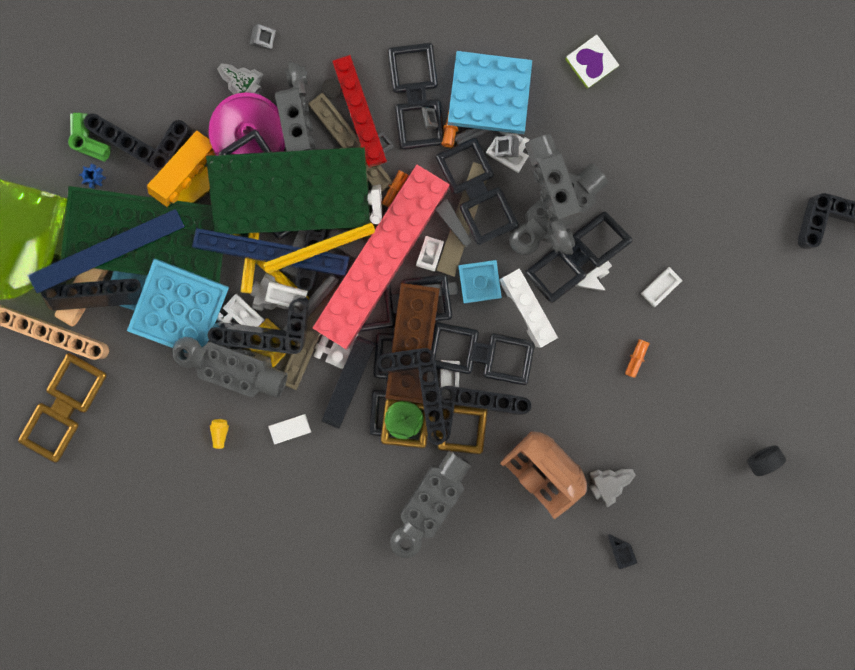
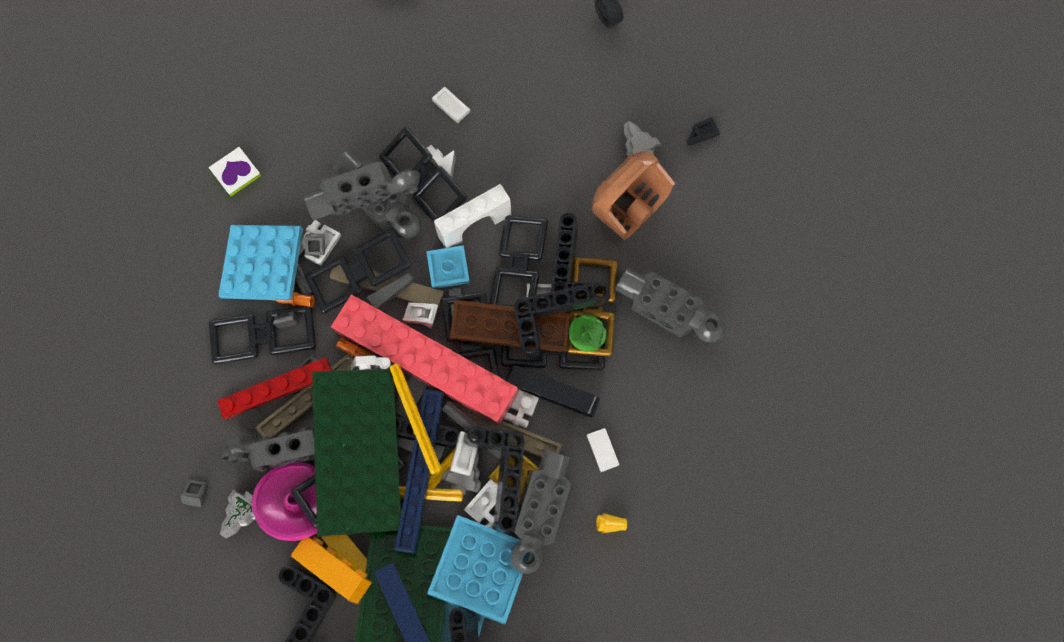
camera: 95 degrees left, 15 degrees down
(637, 358) = (518, 123): orange axle -> none

